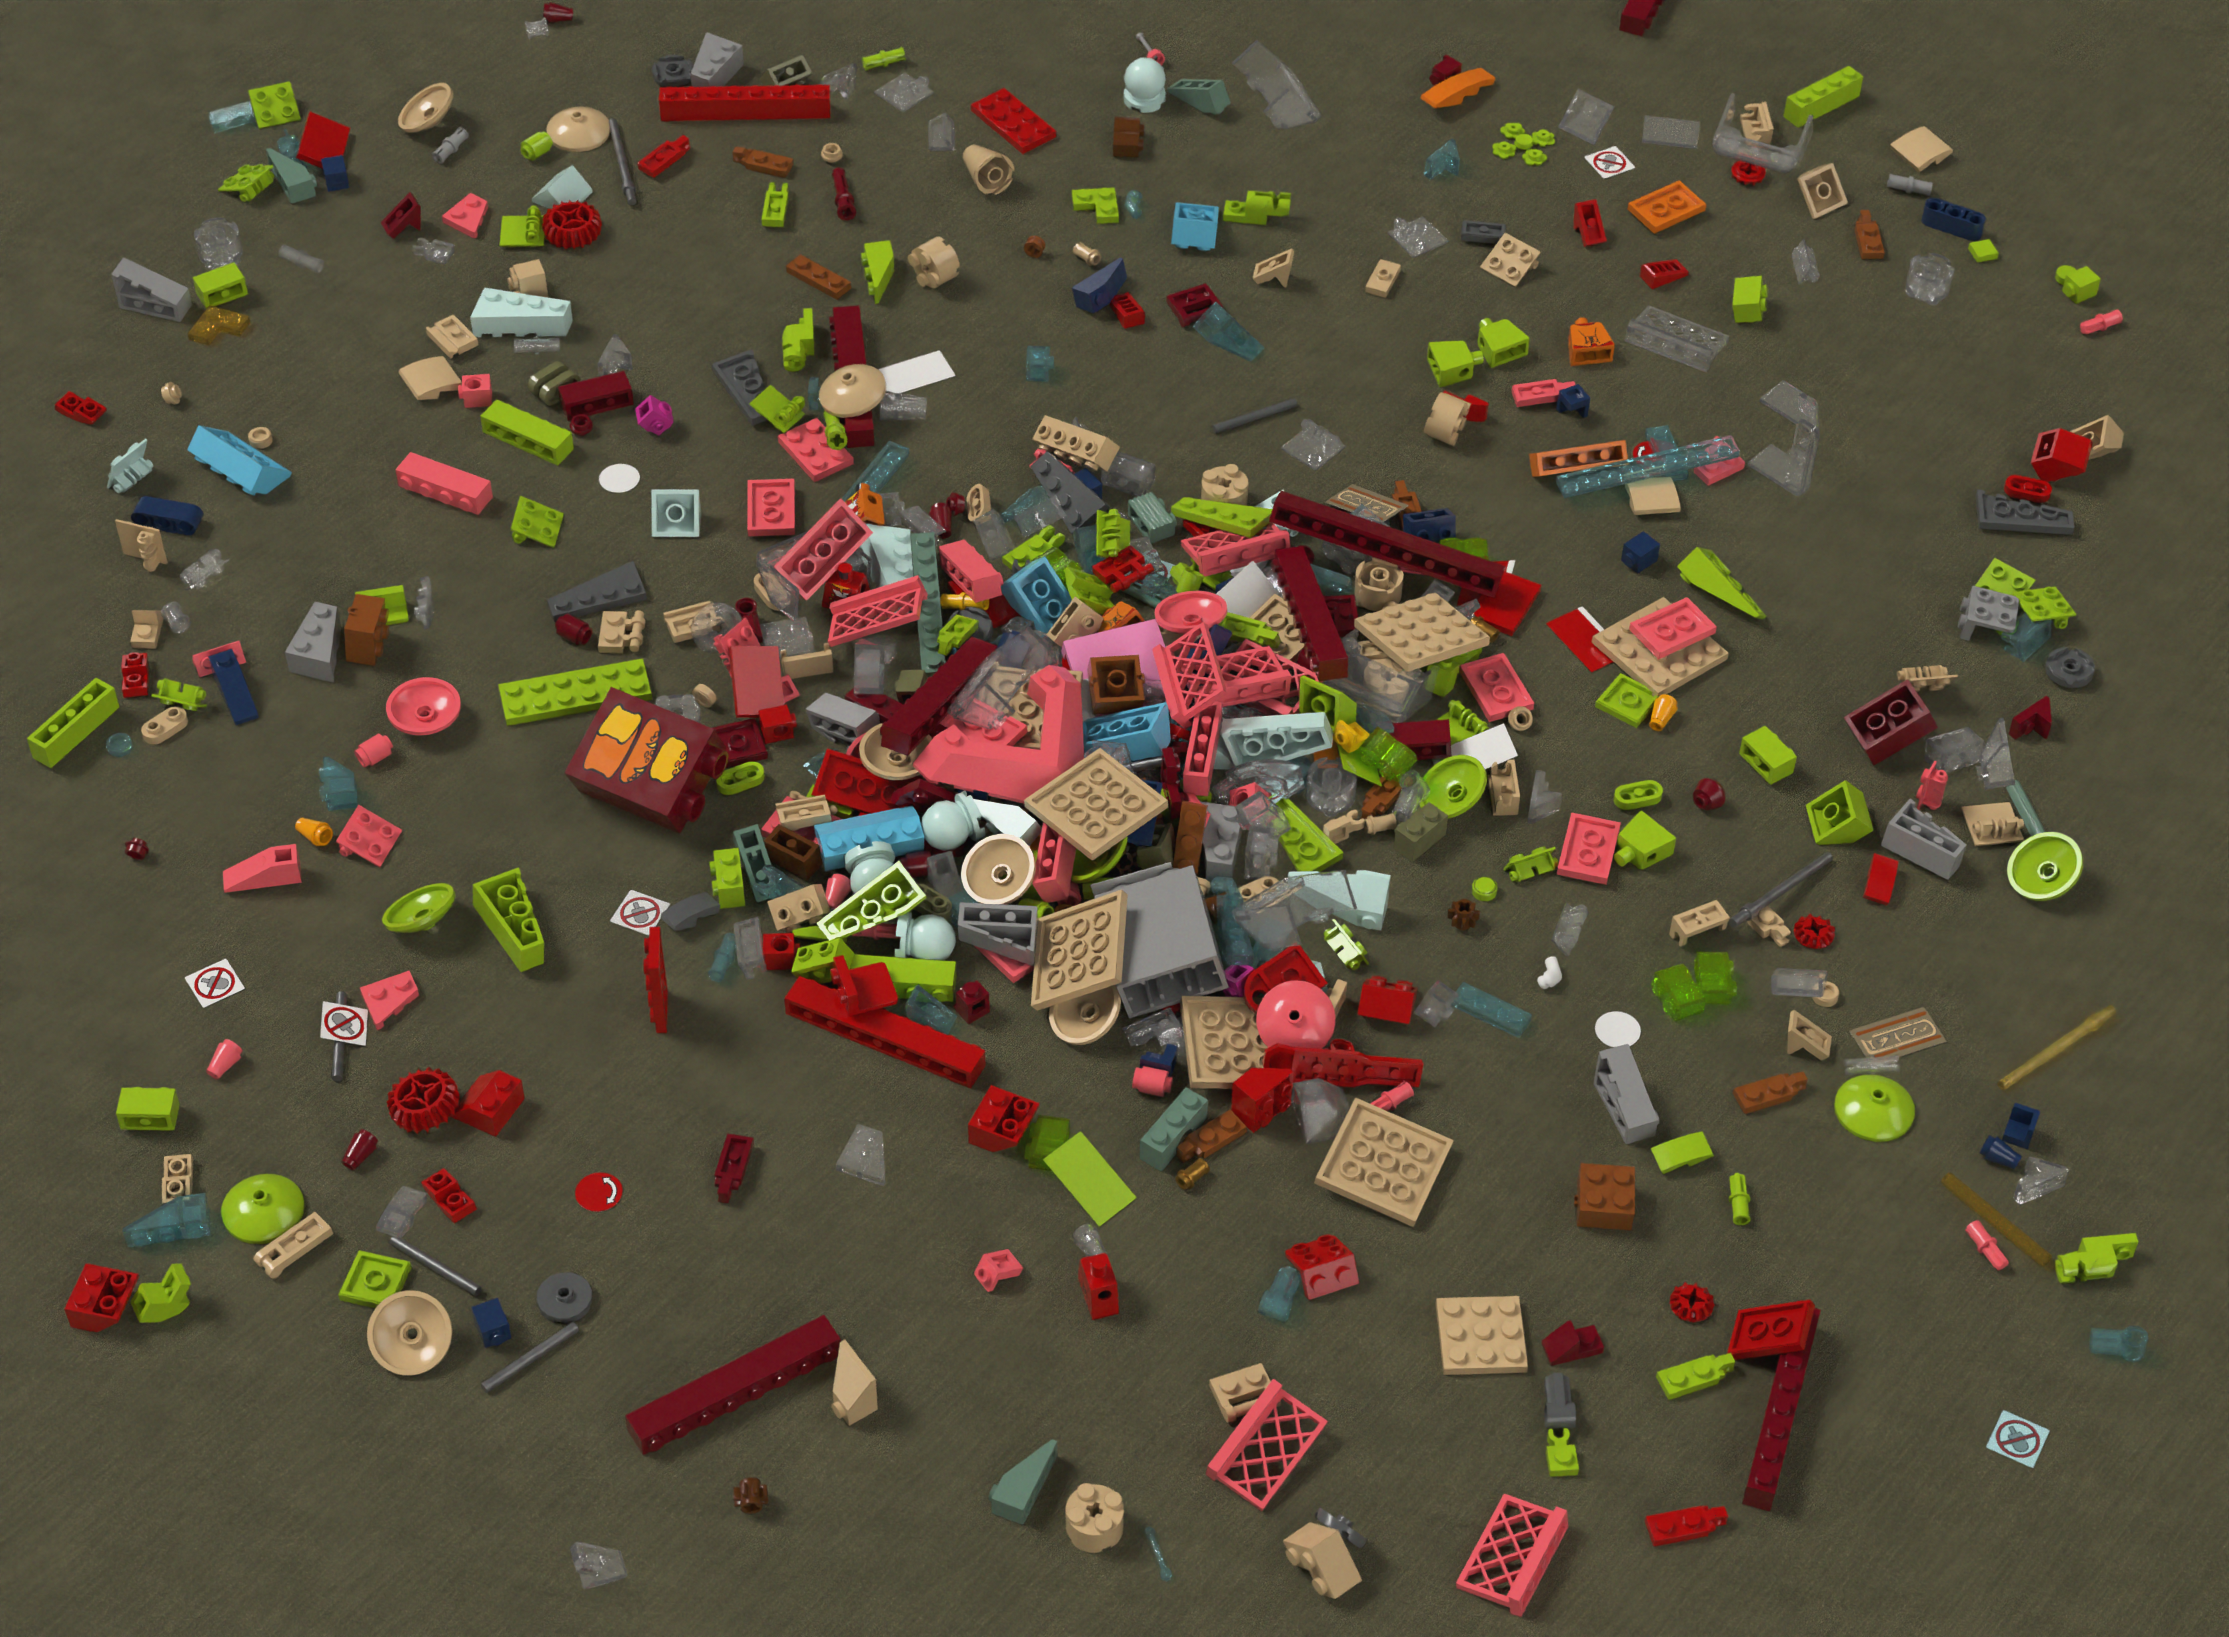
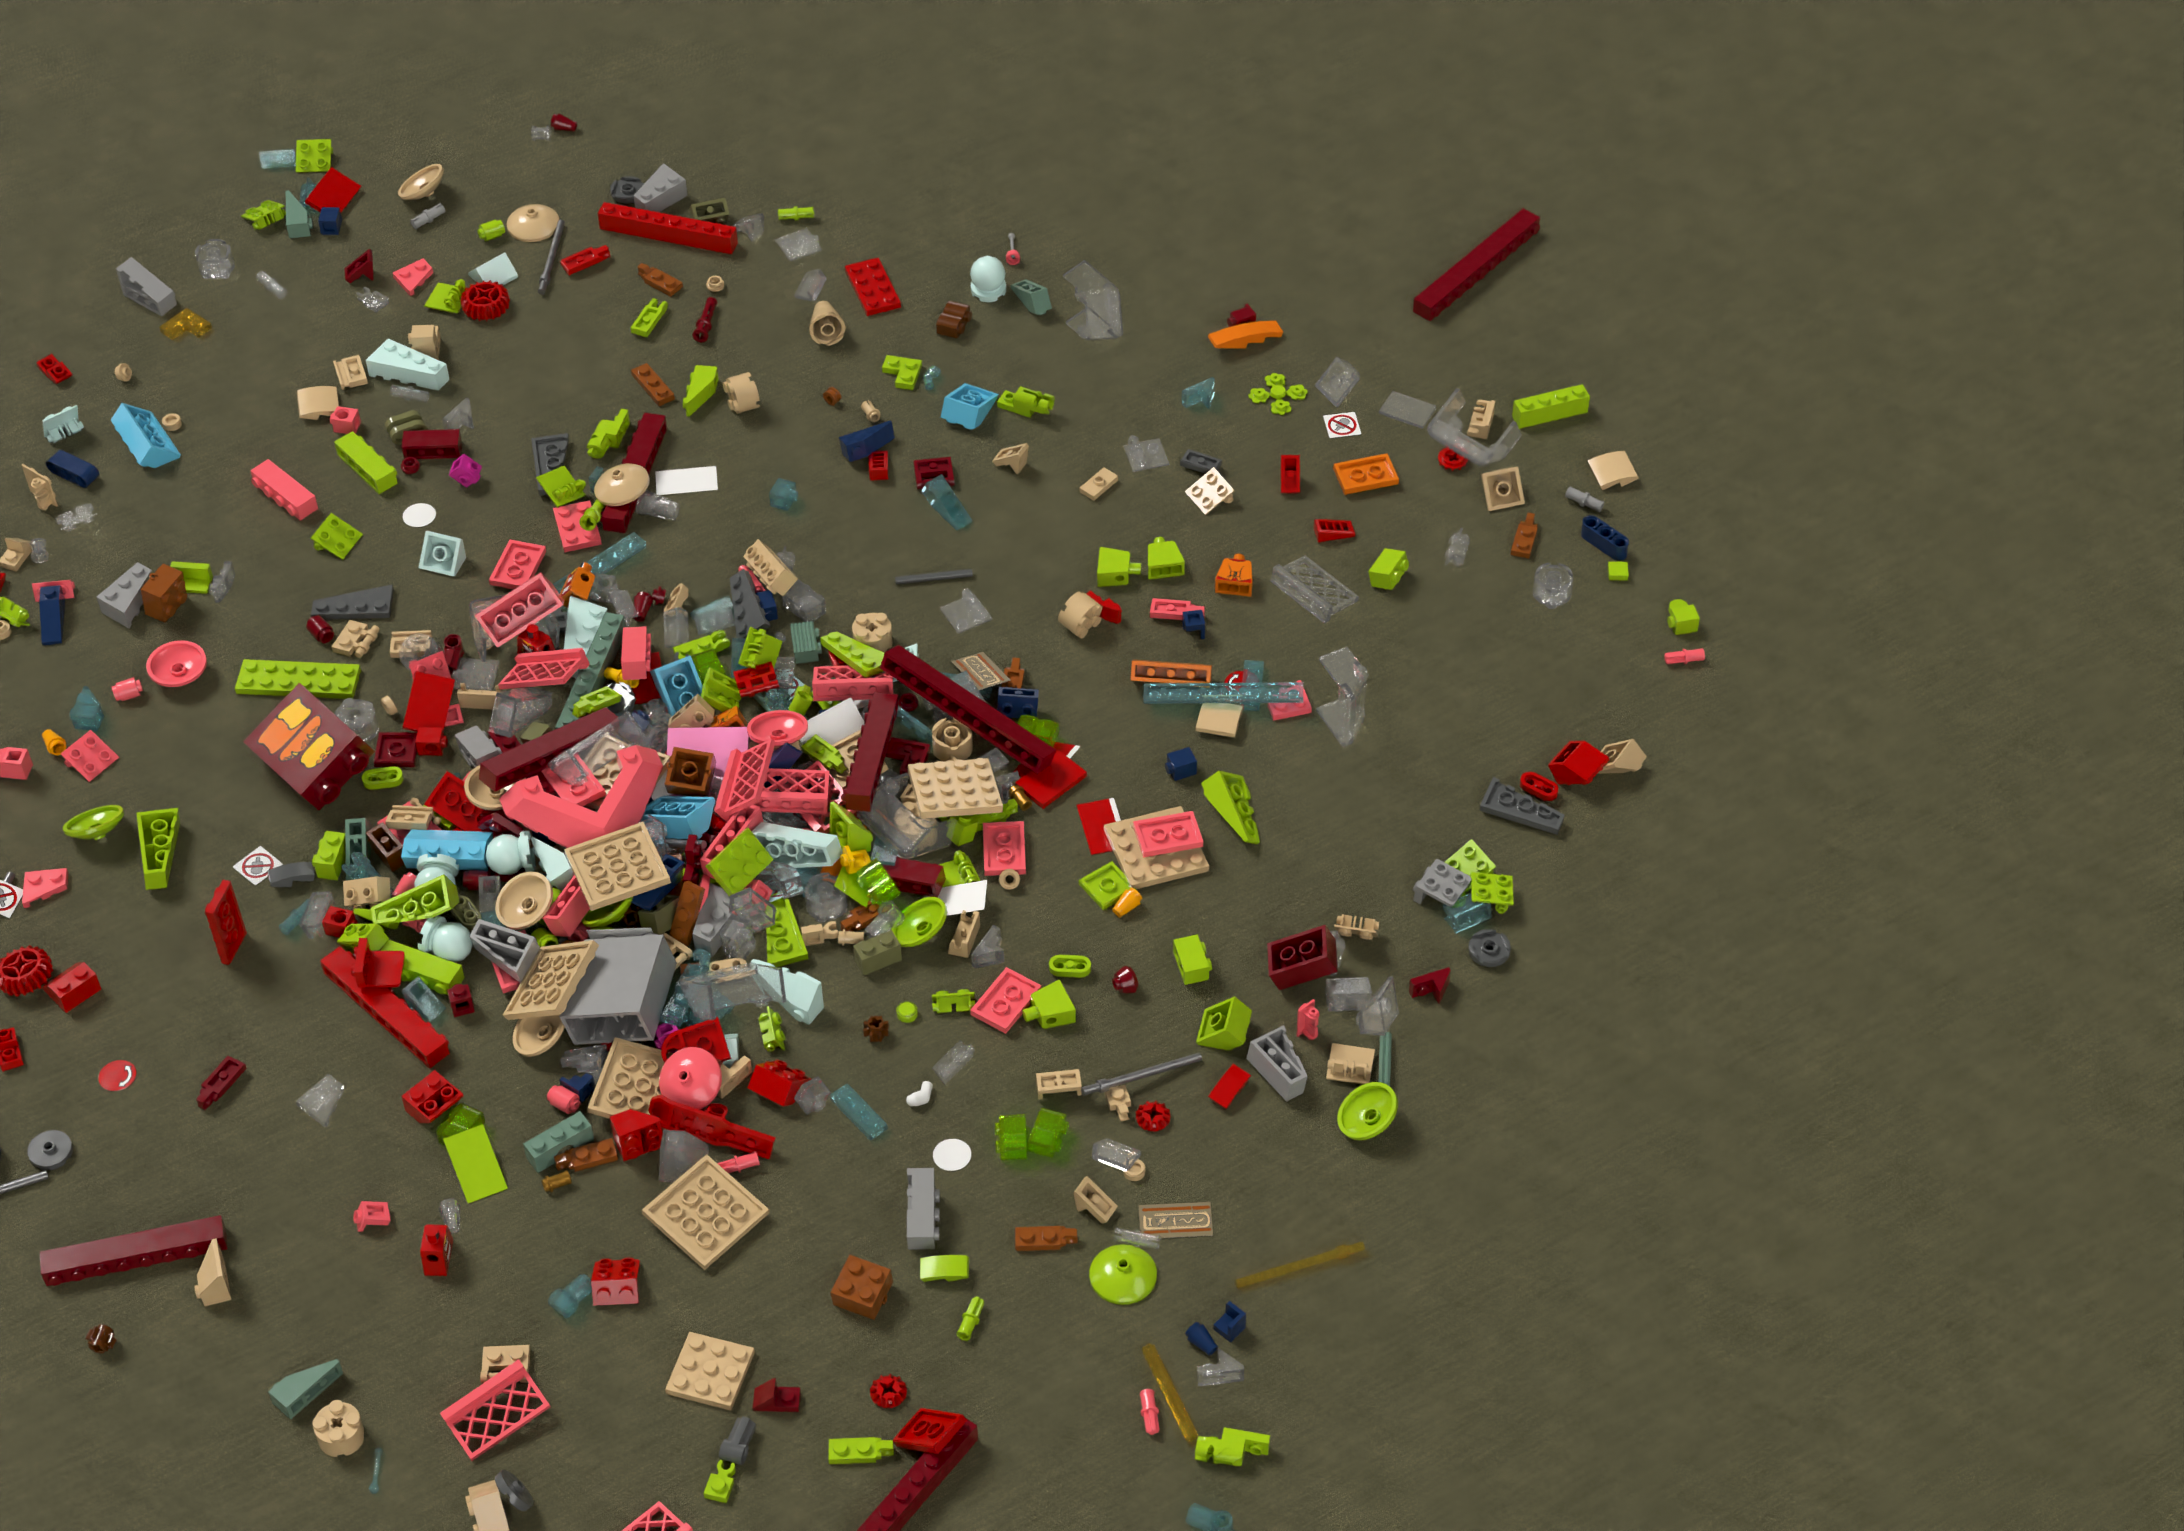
camera: 20 degrees right, 0 degrees up
(220, 285) = (199, 294): lime brick -> none
(1227, 768) = (739, 862): none -> lime plate

